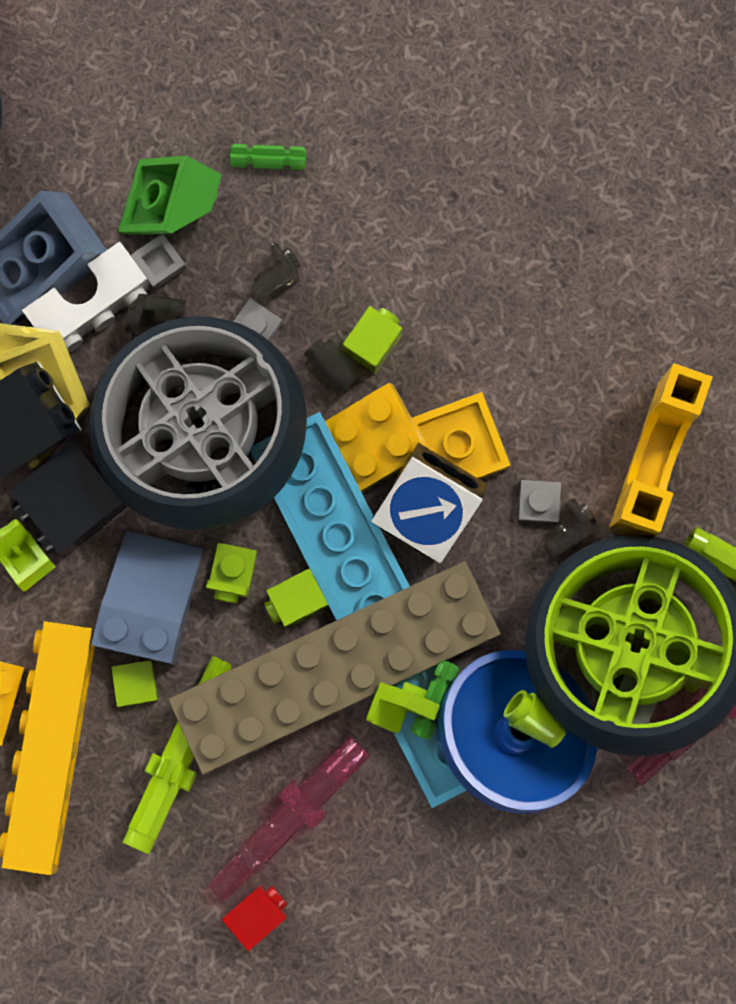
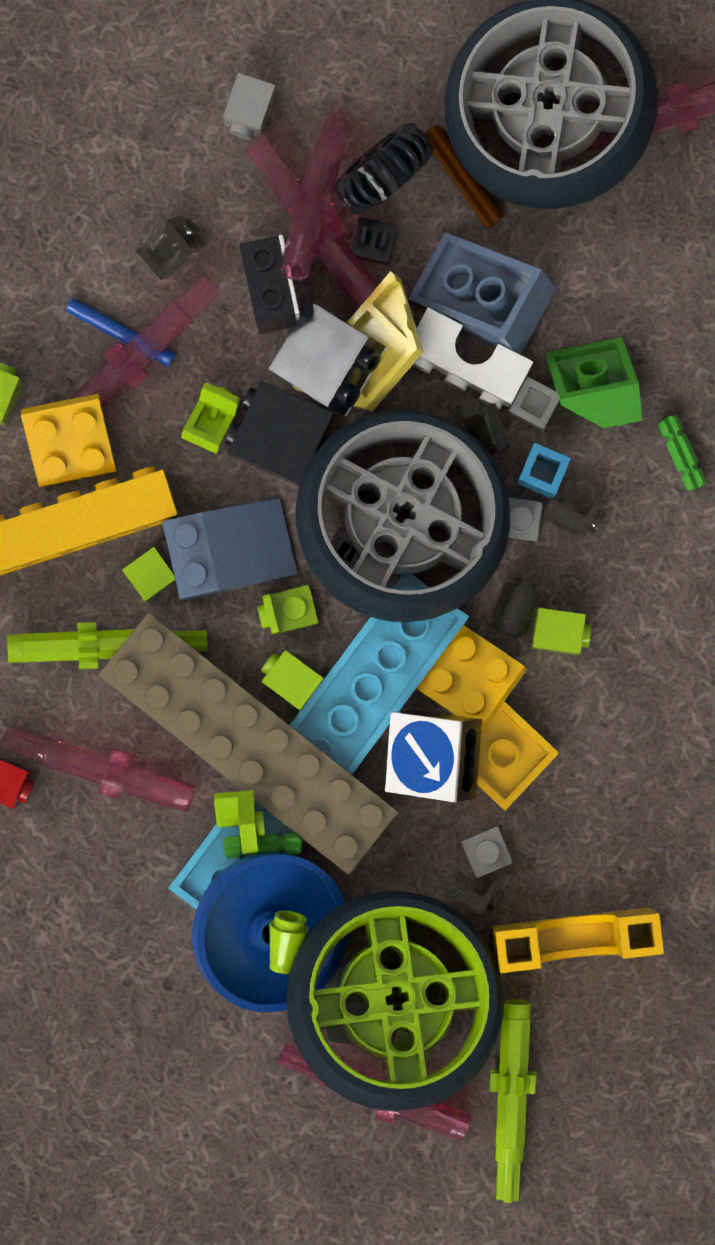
camera: 70 degrees right, 5 degrees up
(222, 281) = (543, 471): none -> dark azure brick

